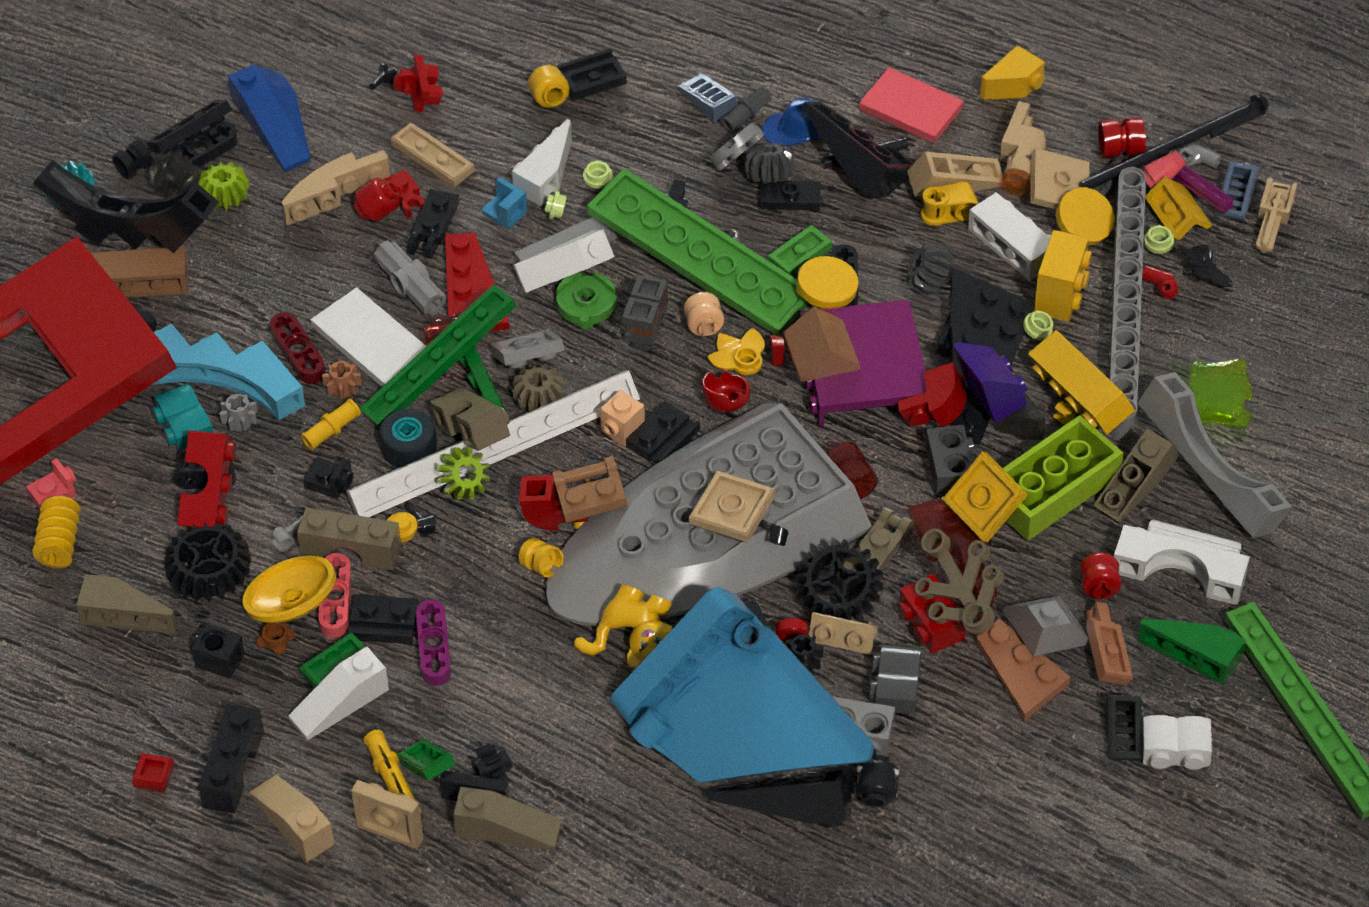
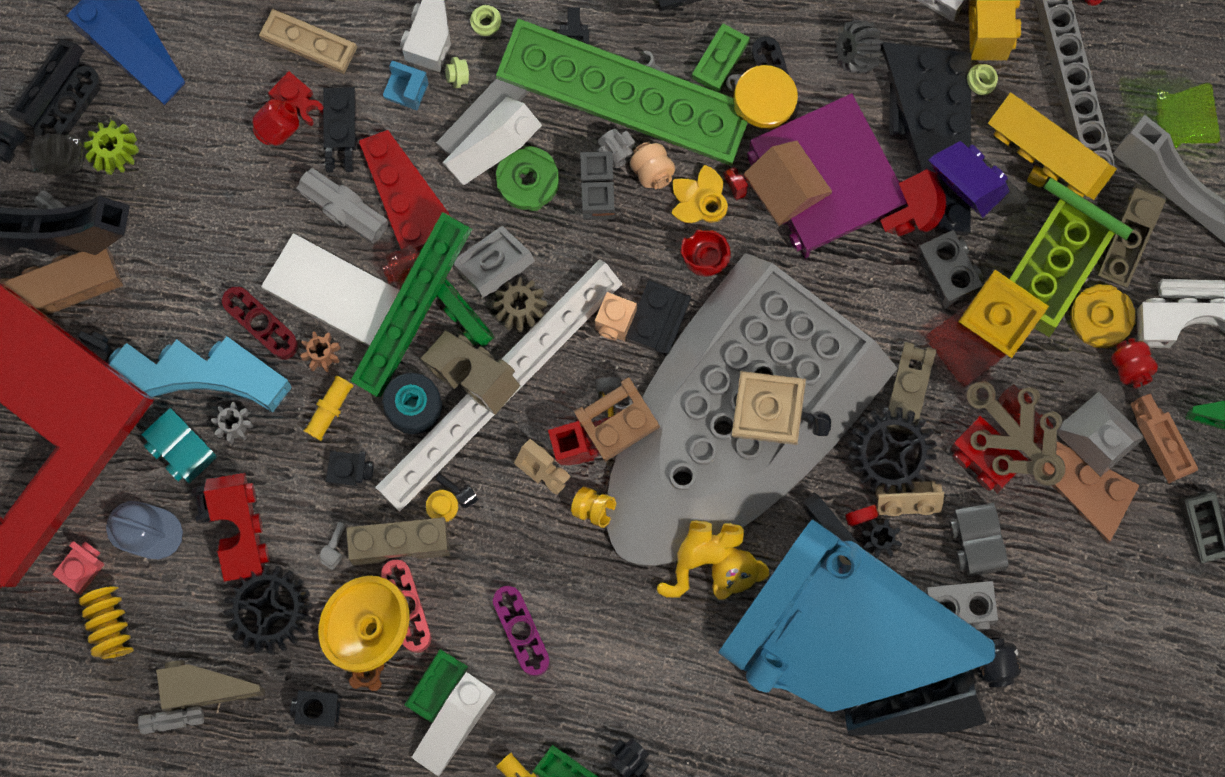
camera: 15 degrees left, 25 degrees up
(80, 626) = (170, 720): none -> light grey axle
(122, 476) = (144, 530): none -> sand blue piece
(324, 186) = (214, 120): tan slope -> none
(383, 619) = (462, 618): black plate -> none
(451, 473) = (472, 436): lime gear -> none
(502, 514) = (539, 466): none -> tan plate
(678, 292) = (619, 144): none -> light grey gear
(854, 466) = (856, 309): clear red wheel -> none
(1084, 534) = (1102, 316): none -> yellow tile
(1095, 431) = (1088, 208): none -> bright green bar

